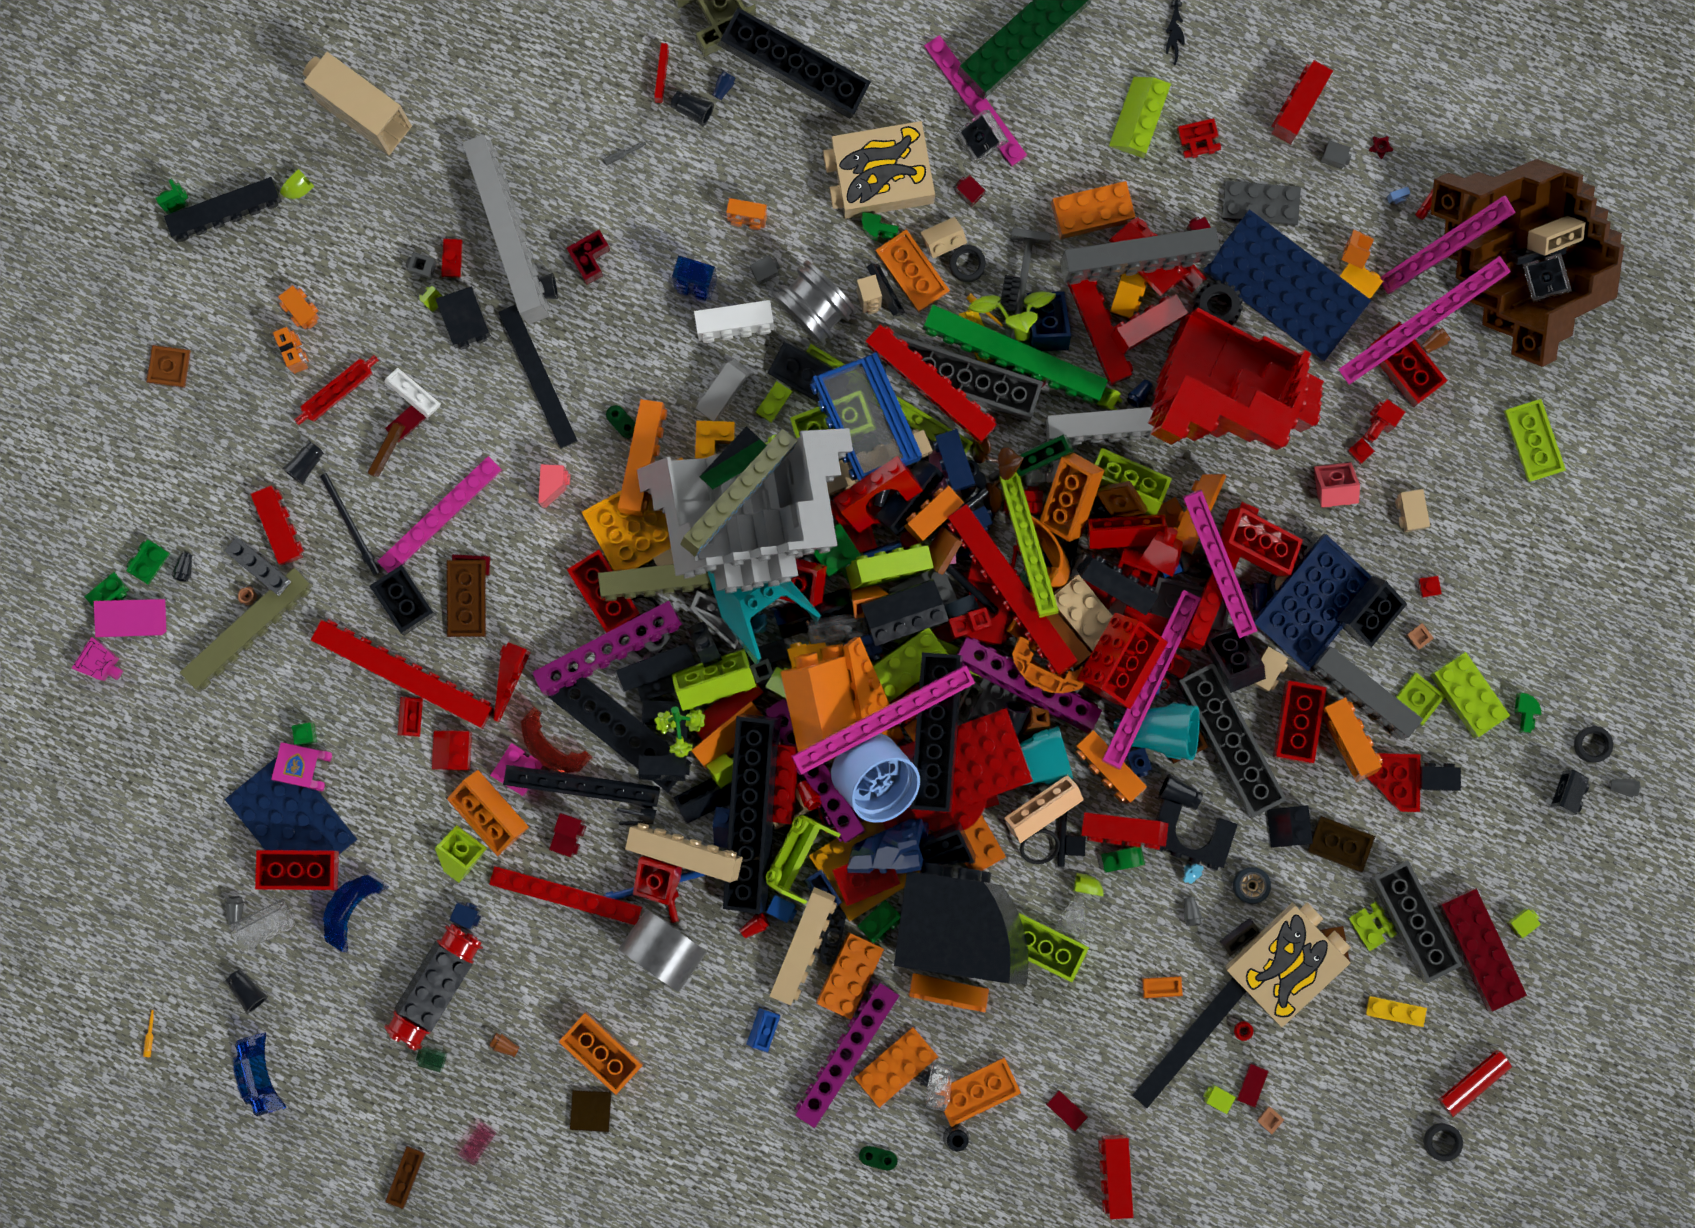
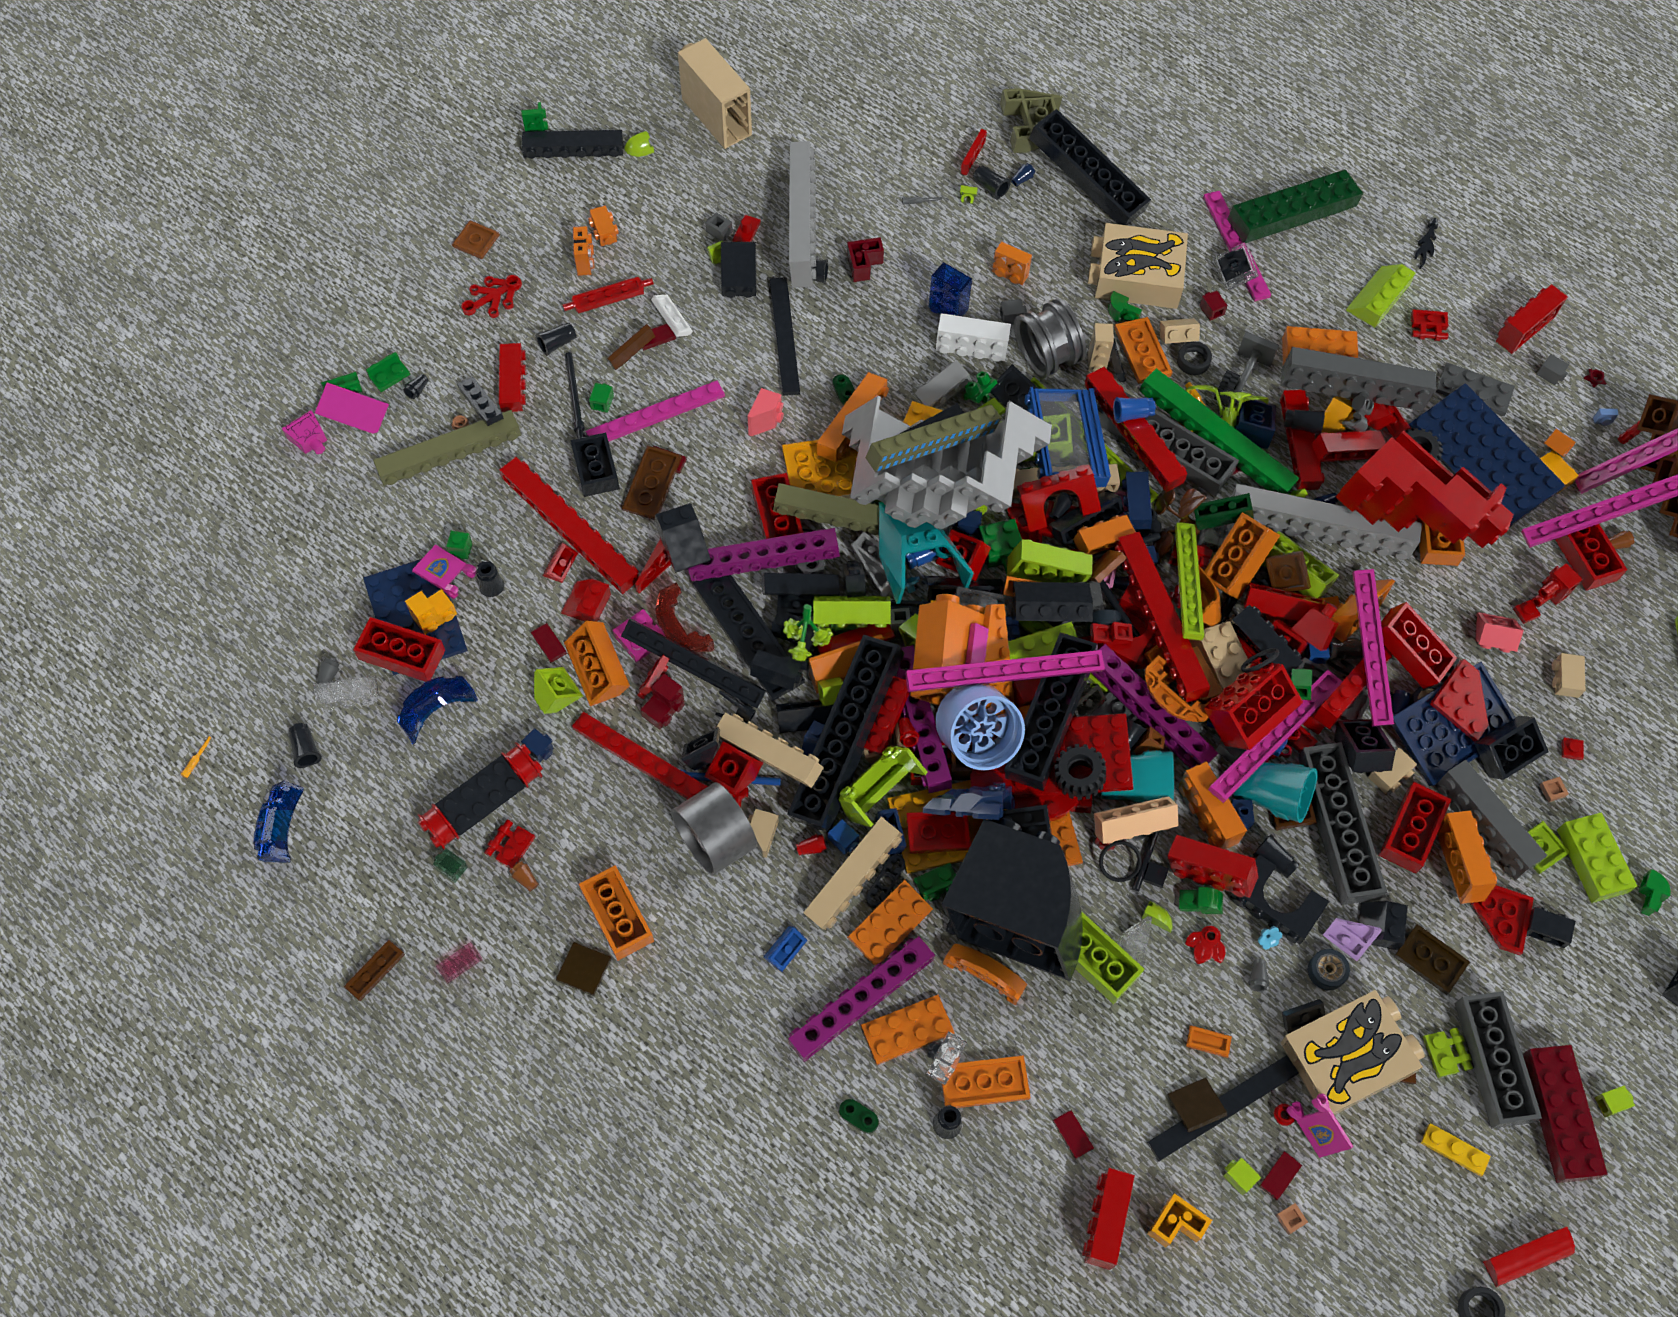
camera: 20 degrees right, 20 degrees down
(216, 429) = (493, 294): none -> red plant
(310, 818) = (430, 611): none -> light orange brick
(357, 765) = (489, 579): none -> black plant
(378, 517) = (601, 397): none -> green brick
(432, 805) = (548, 642): none -> dark red tile
(483, 1021) = (514, 848): none -> red plate
(525, 666) = (682, 537): none -> black slope
(549, 804) = (659, 668): none -> red plate
(620, 872) = (700, 751): none -> black slope
(672, 128) = (967, 191): none -> lime tile
(704, 926) = (764, 827): none -> tan slope
(760, 379) = (980, 391): none -> green hips
(848, 698) = (977, 644): none -> dark pink tile
(923, 371) = (1133, 408): none -> blue plant
(965, 795) = (1076, 757): none -> black tyre
(1098, 313) = (1305, 420): none -> black plant
(1124, 620) = (1261, 665): none -> black tyre
(1138, 901) = (1206, 948): none -> red plate
(1147, 283) = (1362, 406): none -> dark grey leg
(1162, 619) = (1303, 682): none -> green brick
(1166, 1049) = (1197, 1104): none -> dark brown tile
(1171, 1154) = (1178, 1216): none -> light orange brick
(1265, 848) = (1351, 936): none -> lavender wing
(1276, 1037) = (1321, 1127): none -> dark pink flag
(1317, 580) = (1463, 700): none -> red plate

